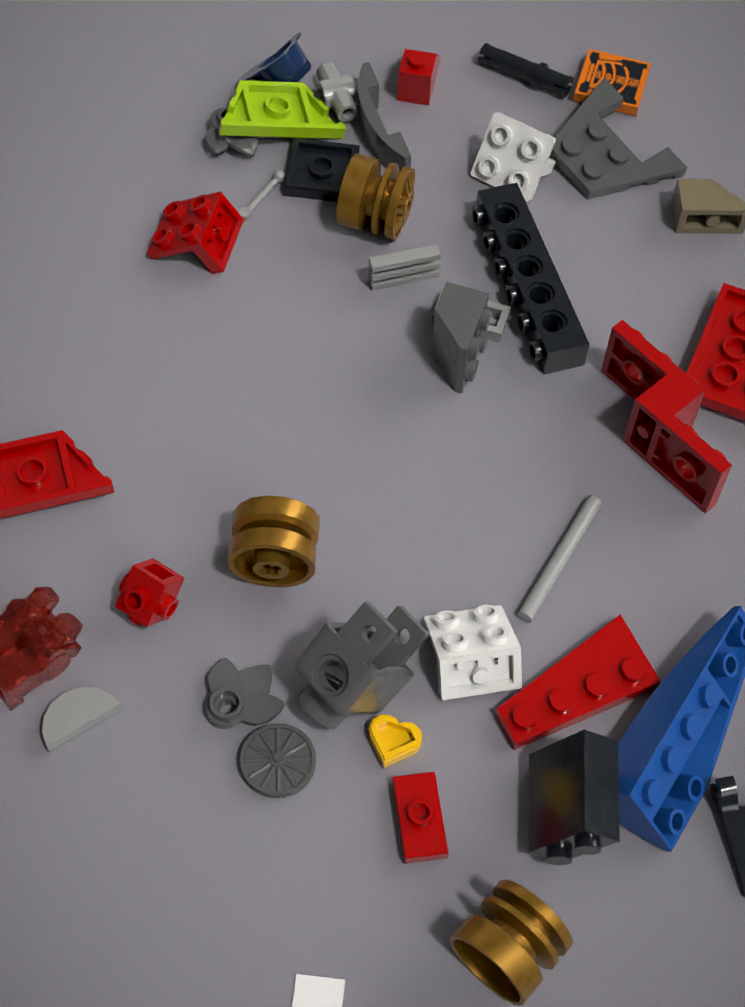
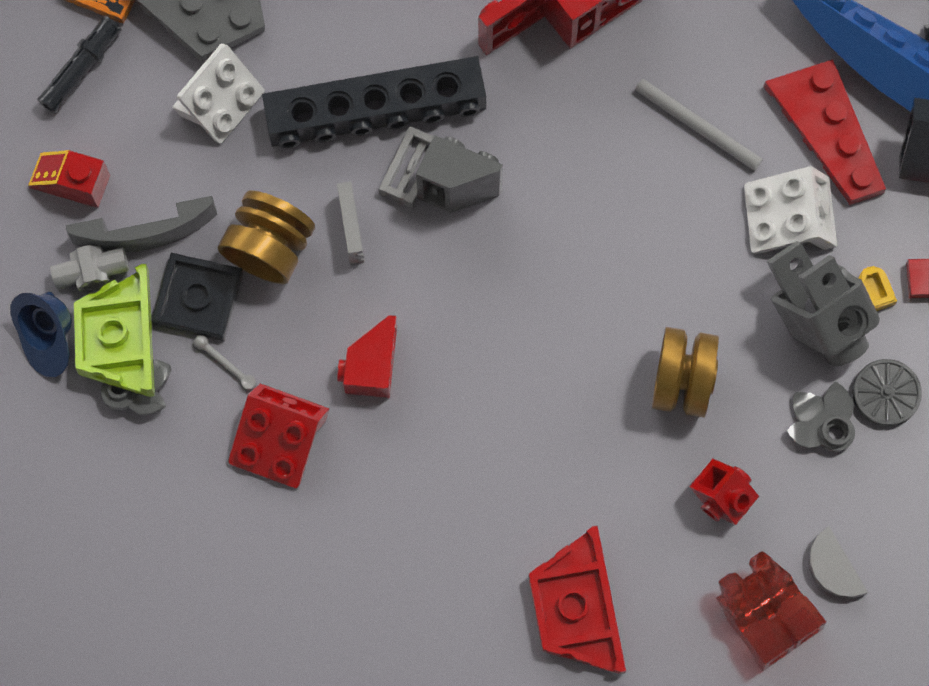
camera: 80 degrees left, 15 degrees up
(271, 294) = (370, 361): none -> red slope

